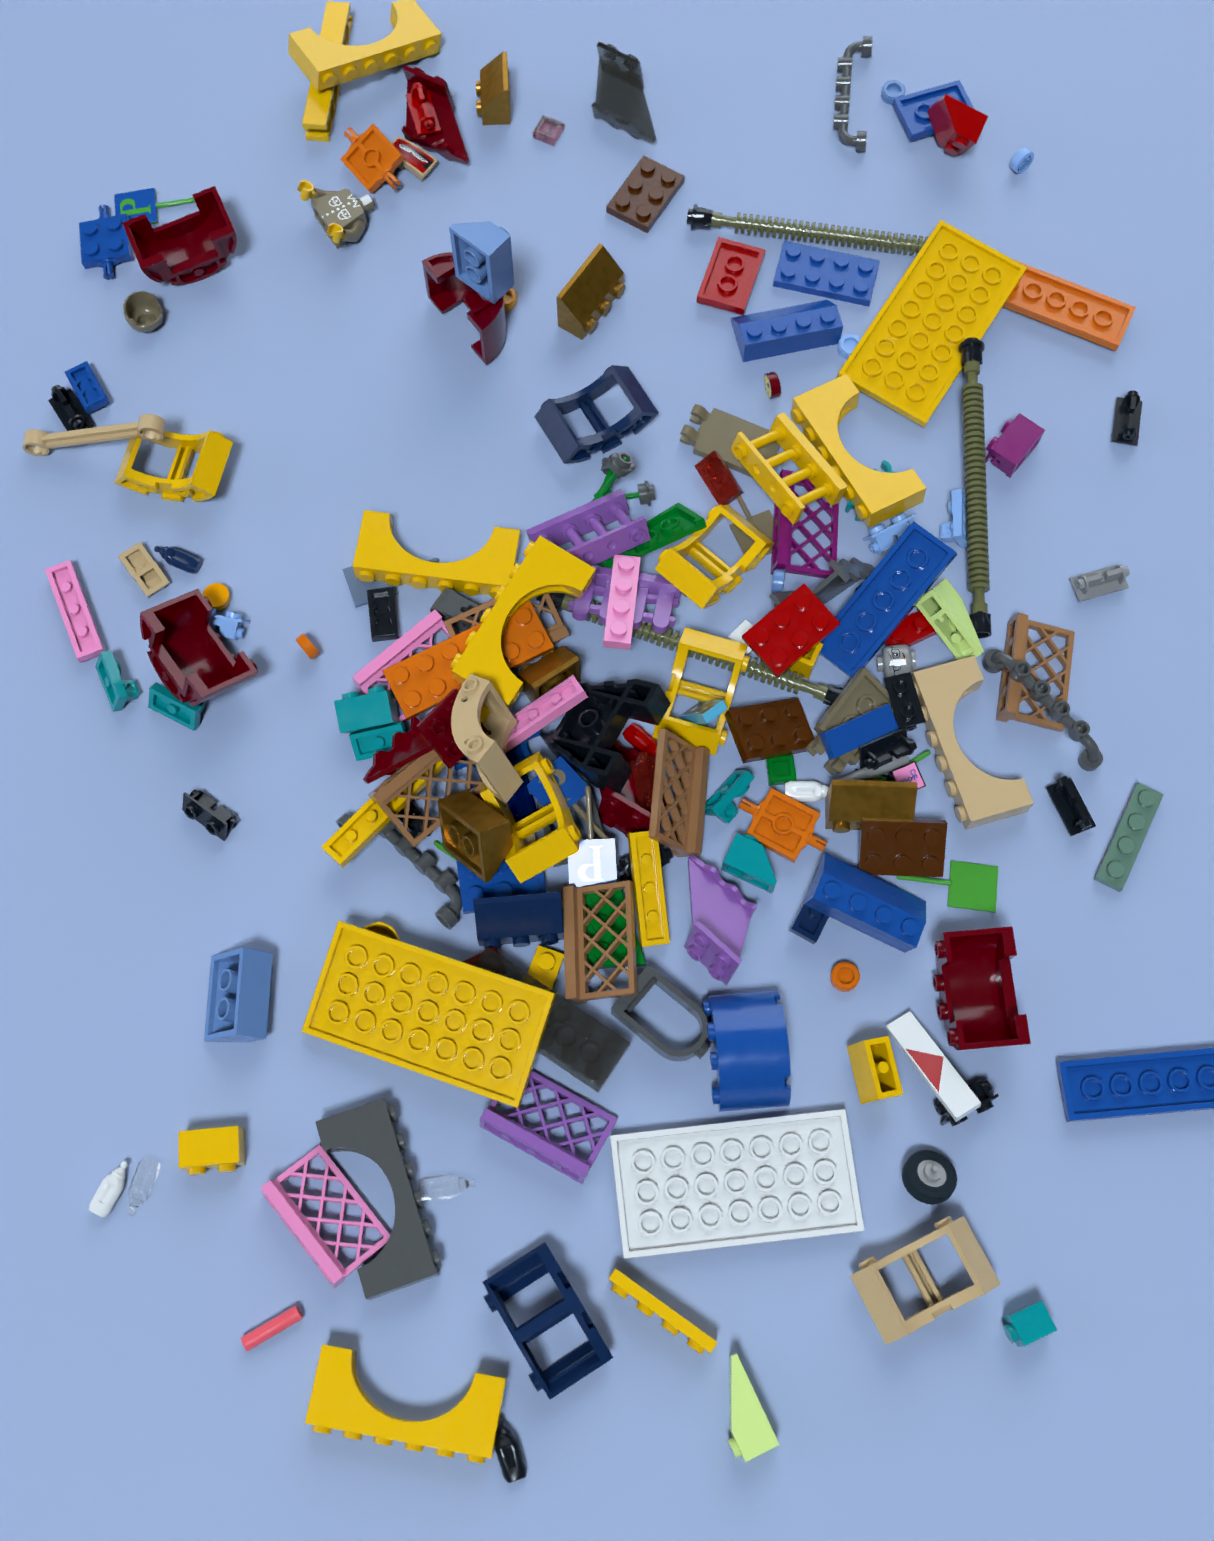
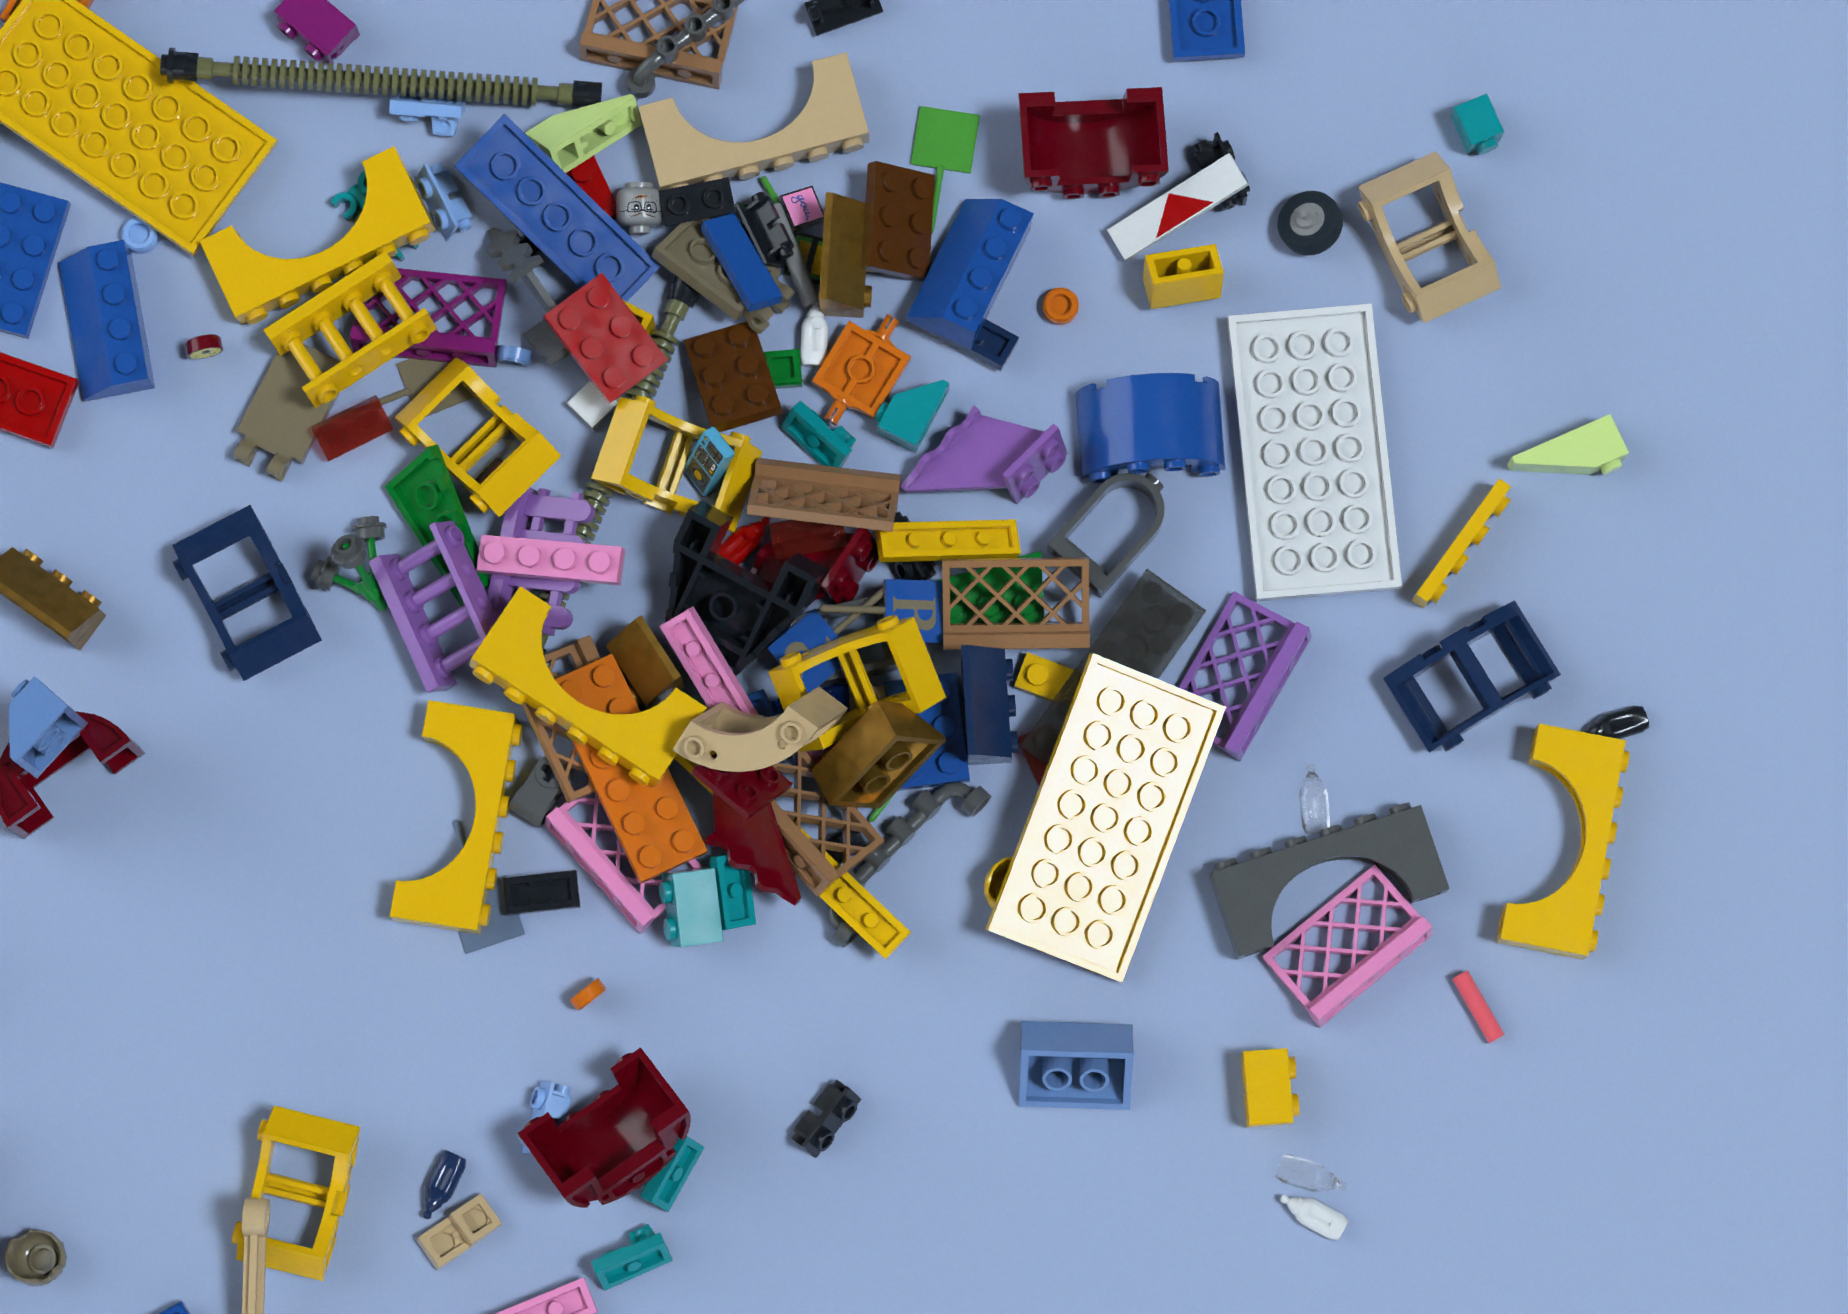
camera: 90 degrees left, 10 degrees up
(218, 595) = (503, 1126): light orange tile -> none

